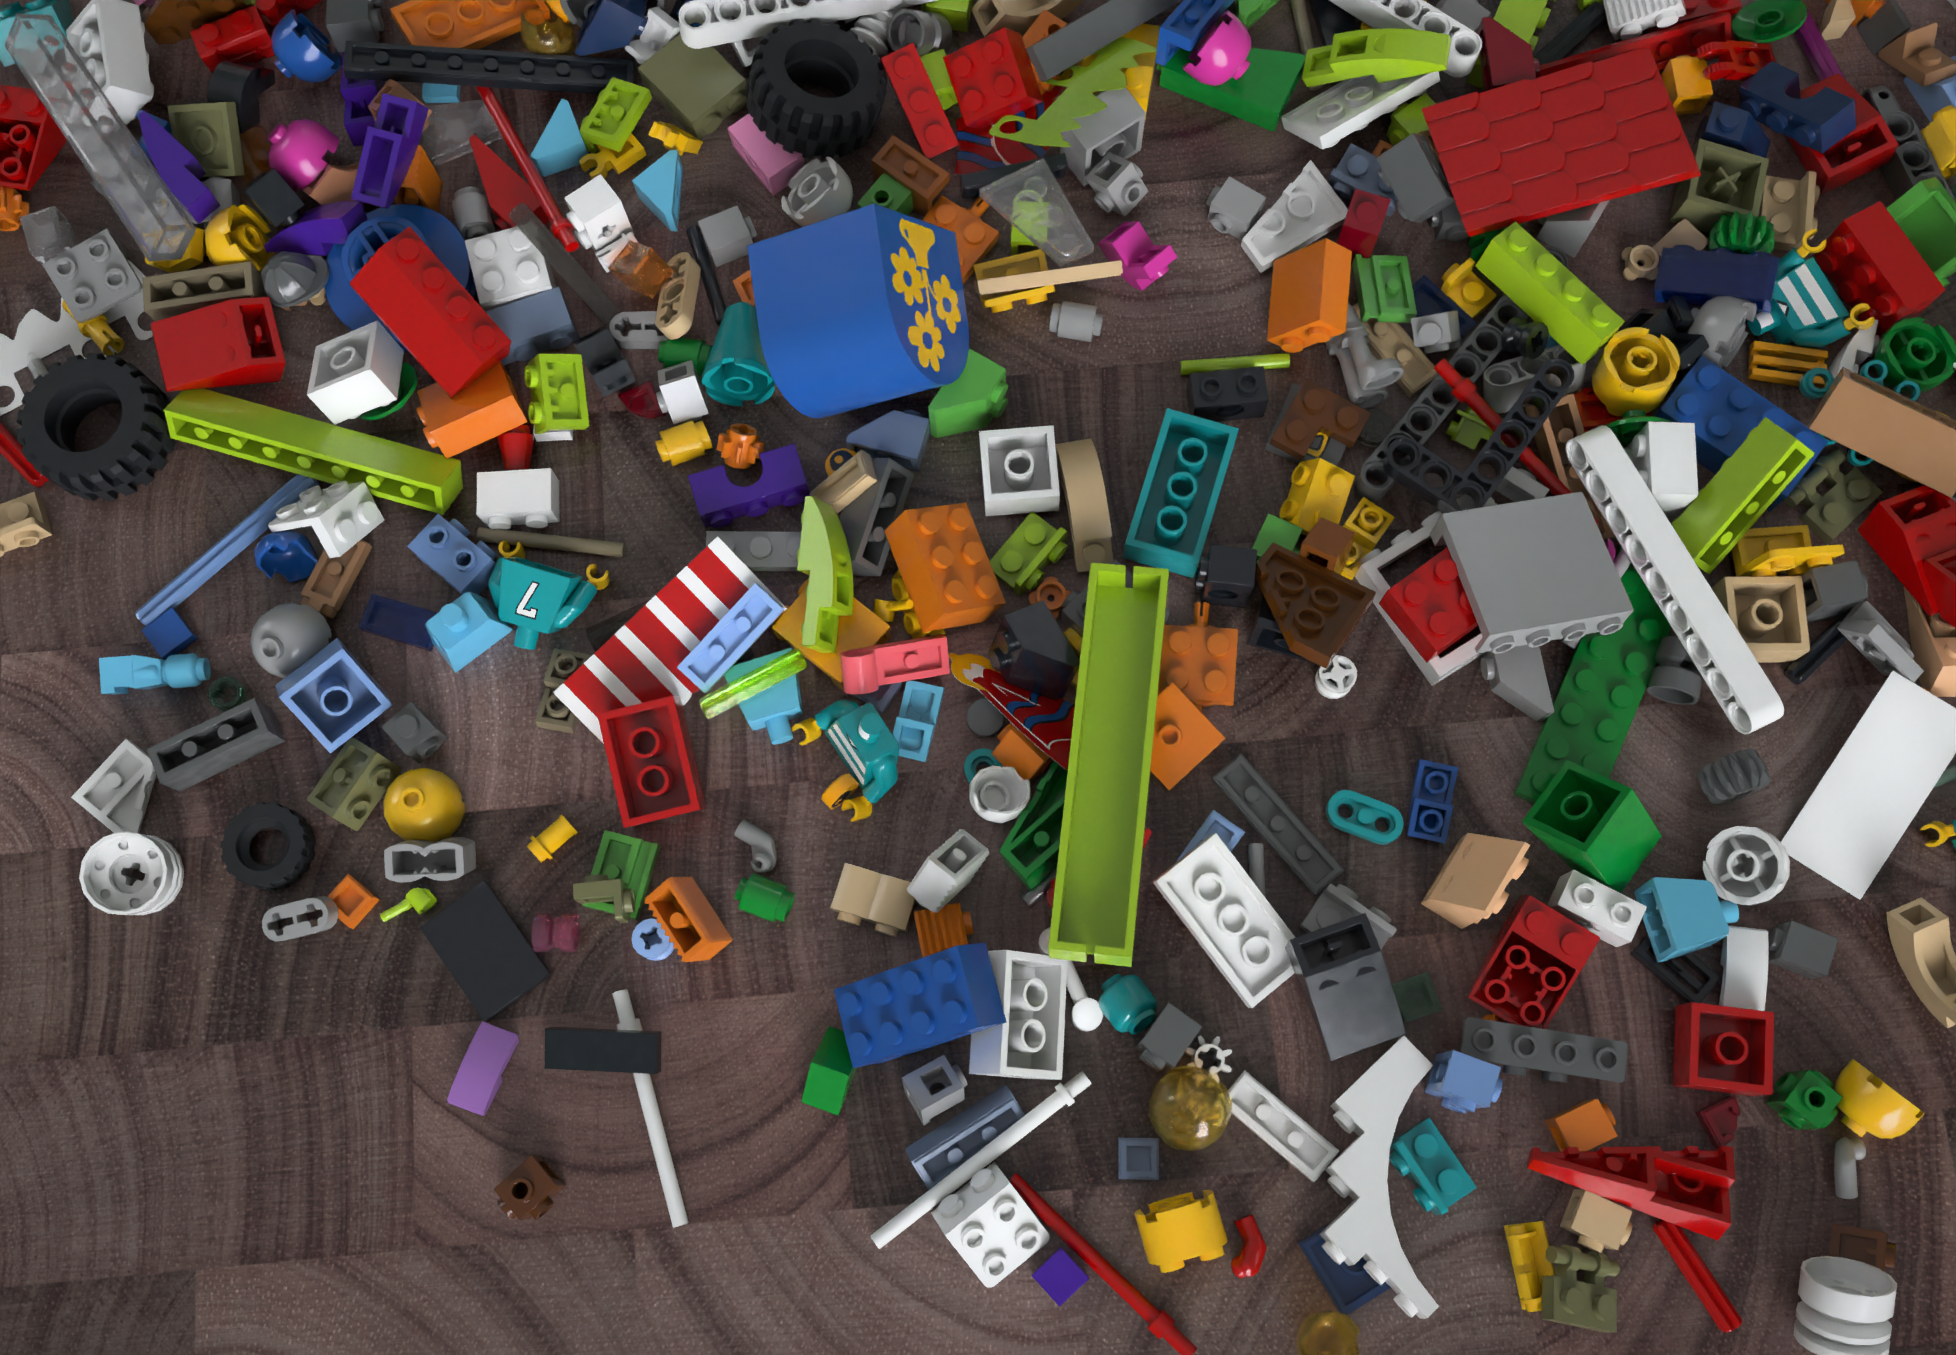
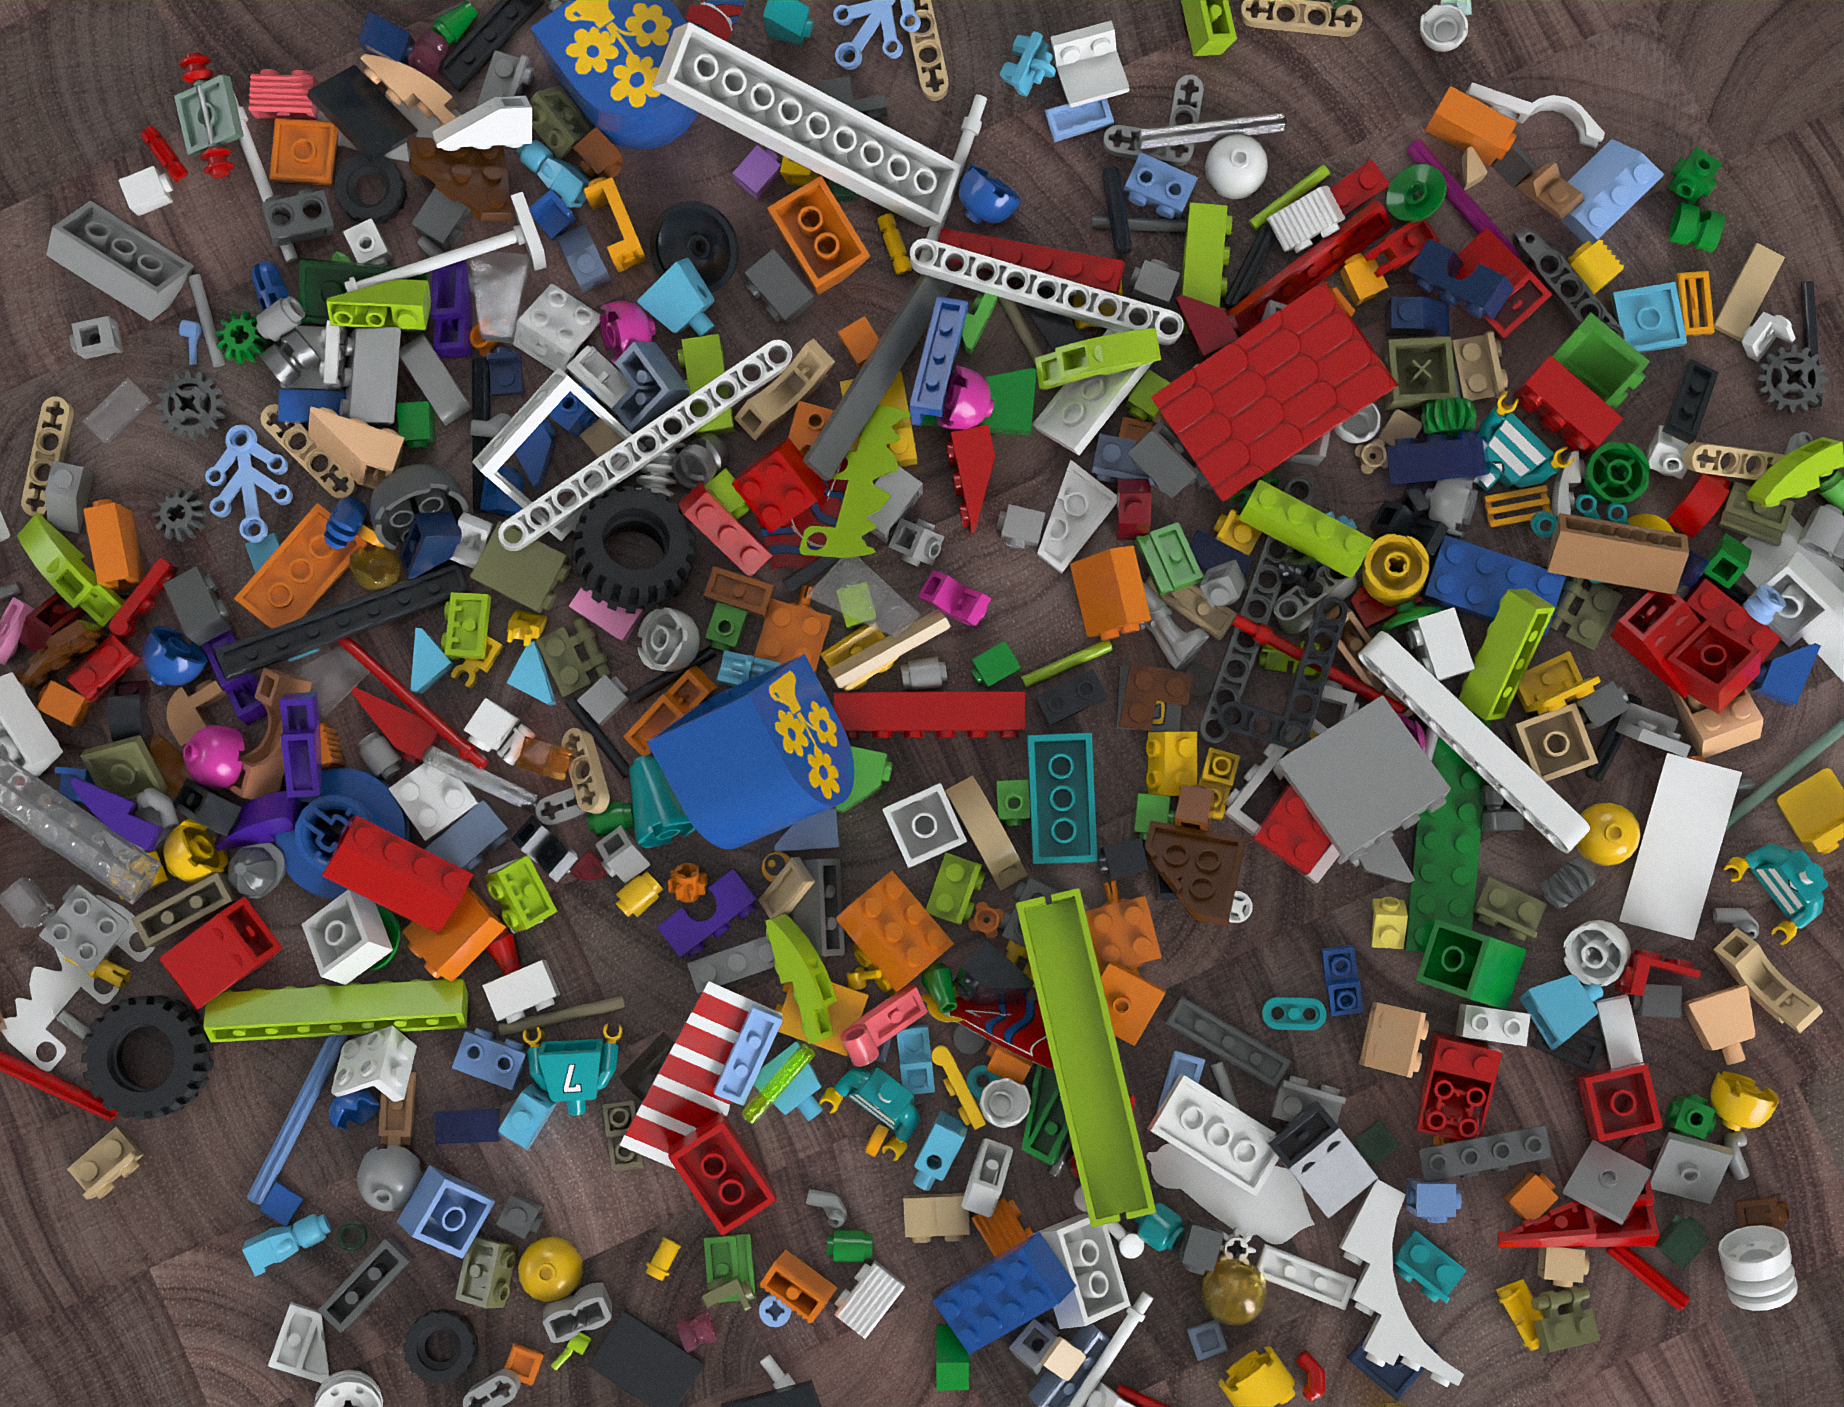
camera: 20 degrees left, 10 degrees up
(180, 63) = (63, 703): none -> orange brick
(228, 179) = (163, 804): none -> light grey arm
(298, 102) = (186, 709): none -> medium nougat brick
(702, 186) = (565, 662): none -> olive plate
(763, 965) = (869, 1298): none -> white brick
(919, 816) = (944, 1141): none -> medium azure torso
(952, 762) = (957, 1086): none -> yellow plate
(960, 1113) = (1063, 1358): none -> slope
(973, 645) = (939, 984): none -> green cone
(1072, 362) = (931, 712): none -> red brick
(1125, 480) = (1013, 802): none -> bright green brick
(1156, 337) = (994, 665): none -> green brick
(1202, 130) = (974, 458): none -> red slope
(1264, 1038) = (1273, 1214): none -> white sticker
(1506, 755) = (1389, 923): none -> light yellow bracket
(1634, 218) = (1361, 426): none -> white hair
(1656, 787) = (1509, 908): none -> olive bracket
(1682, 1139) = (1607, 1182): none -> light grey plate
(1752, 1246) = (1681, 1240): none -> clear green brick
(1789, 1159) = (1690, 1167): none -> light grey plate
(1795, 744) = (1612, 834): none -> yellow cylinder
(1810, 899) = (1636, 973): none -> red bracket
(1874, 1001) = (1722, 1021): none -> light nougat torso
(1918, 888) = (1738, 918): none -> light grey arm

